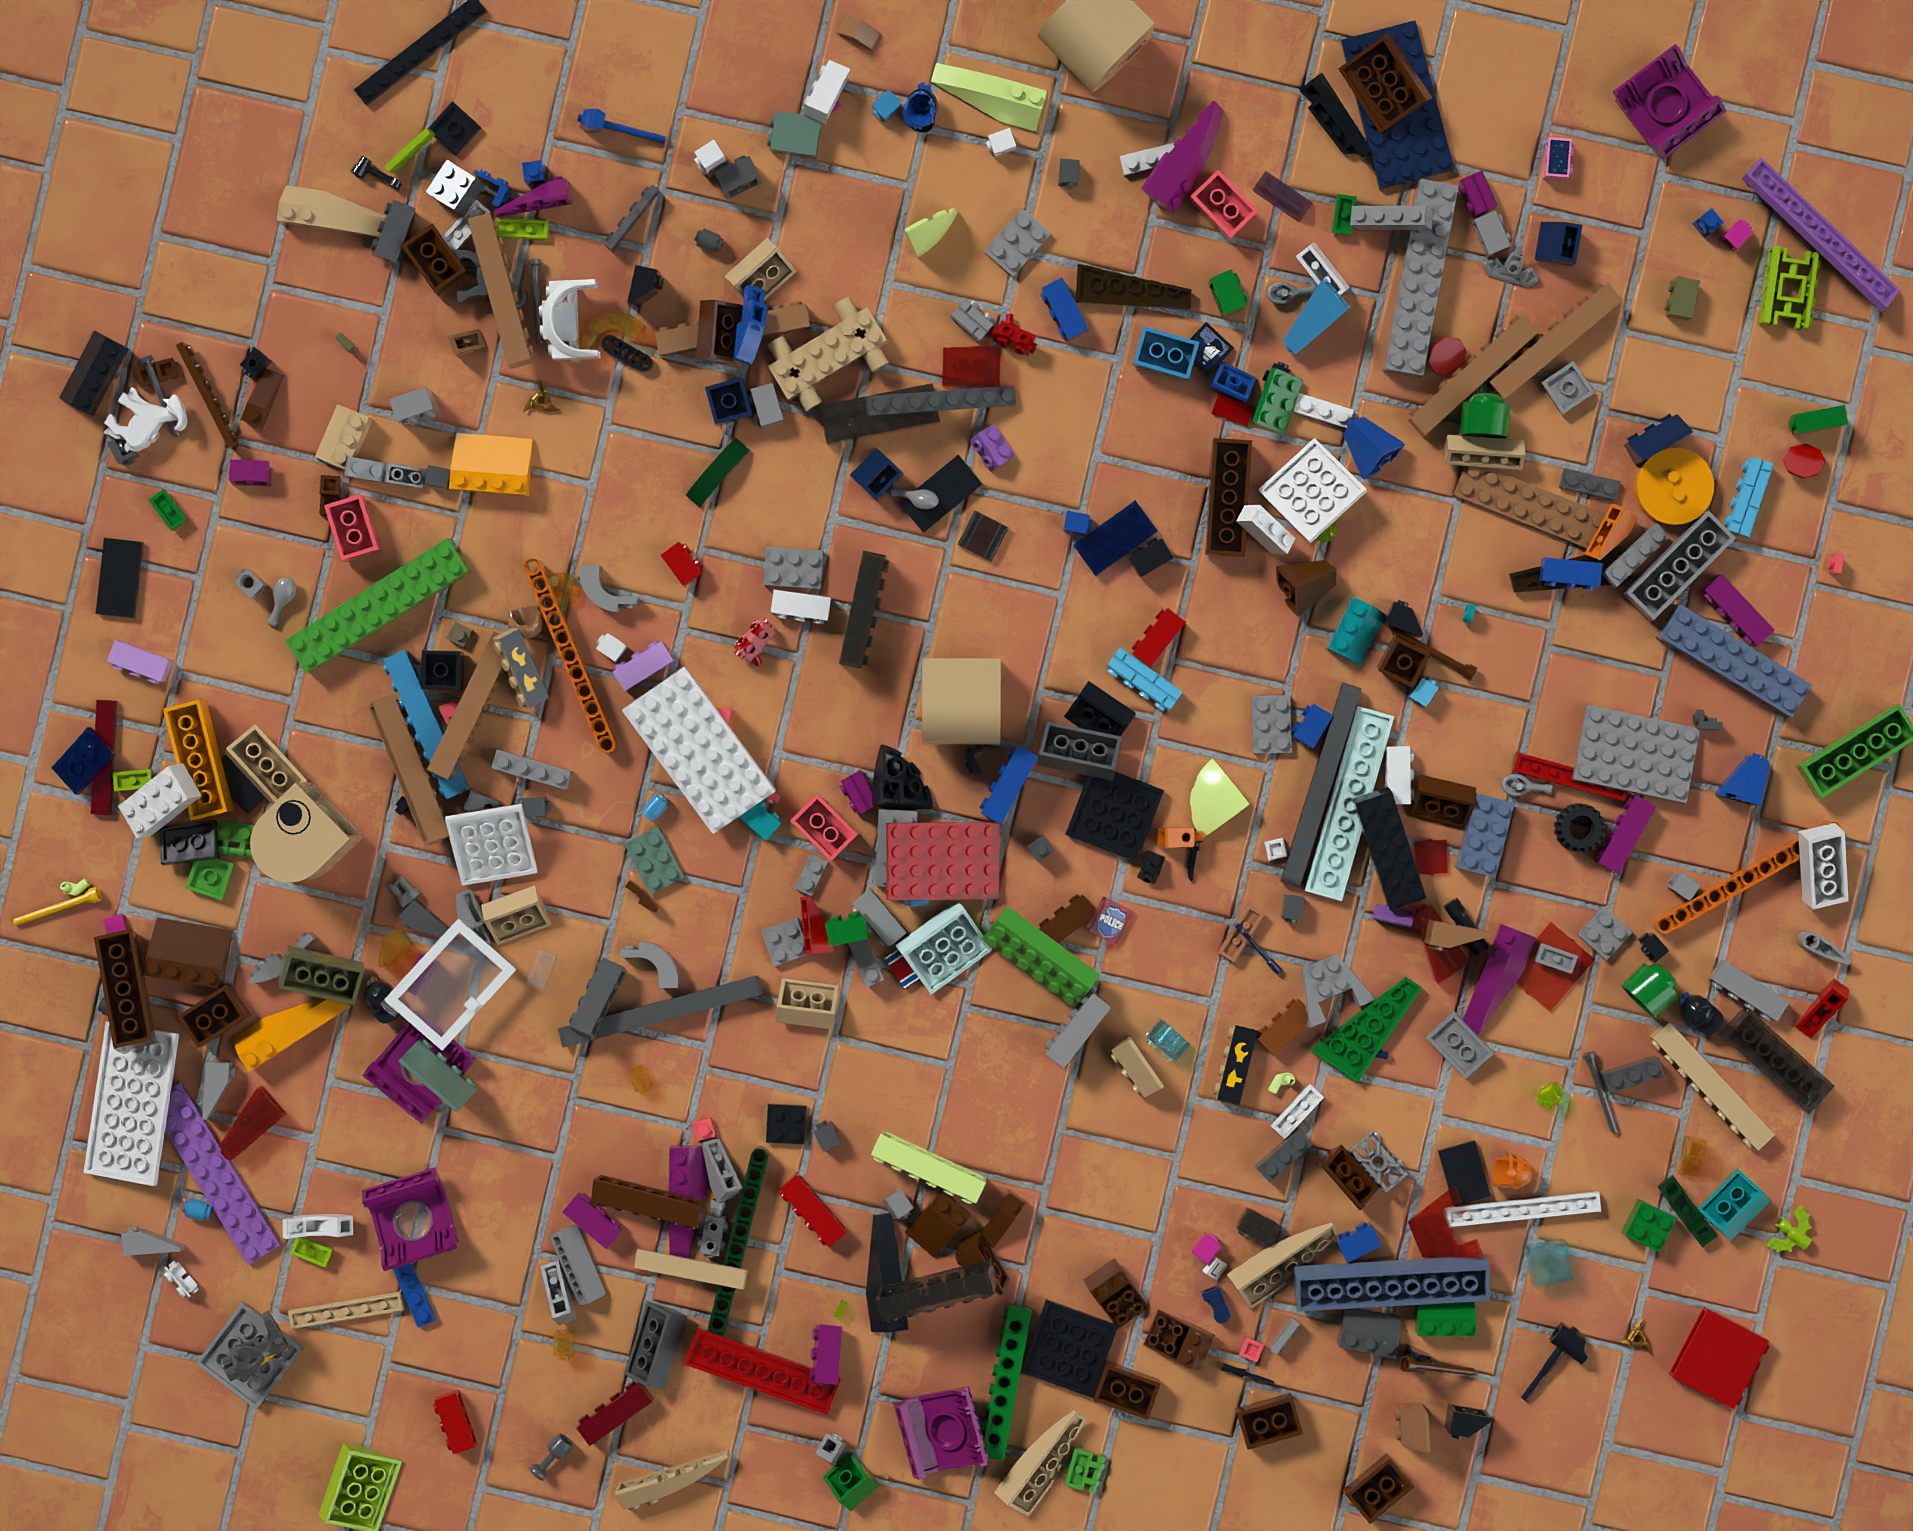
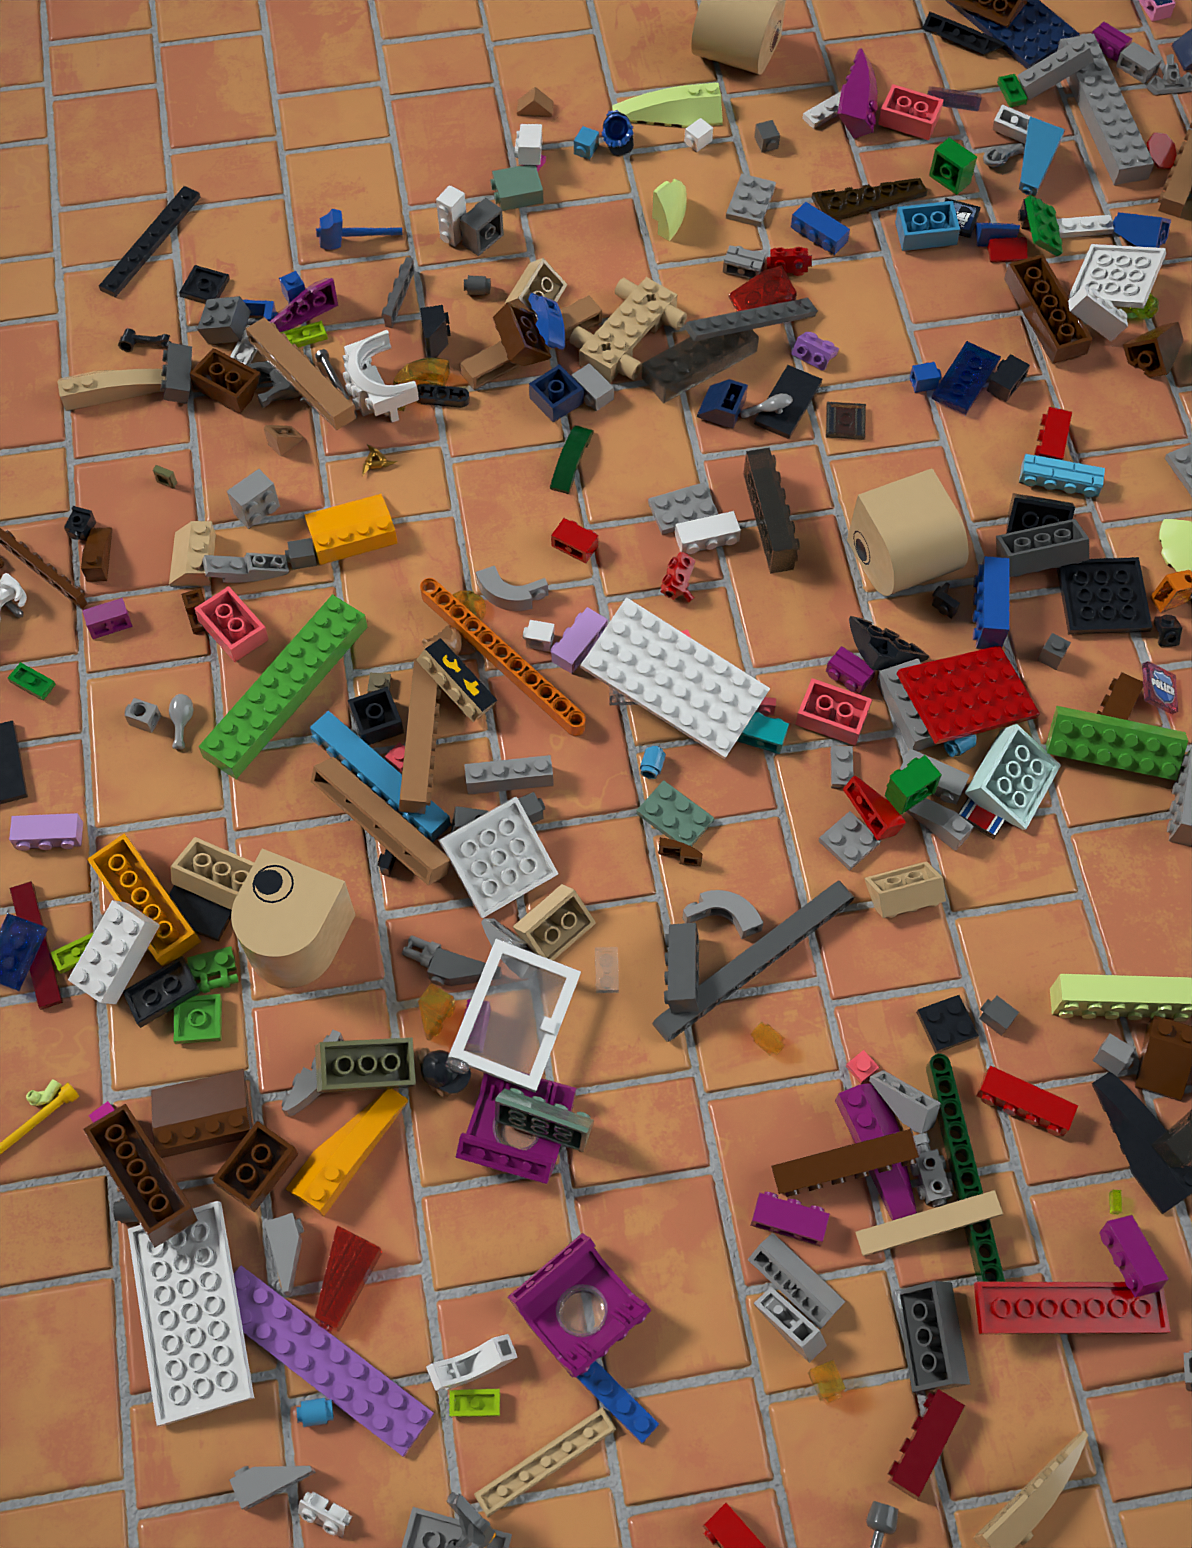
camera: 20 degrees left, 25 degrees down
(410, 150) = (169, 308): lime tile -> none

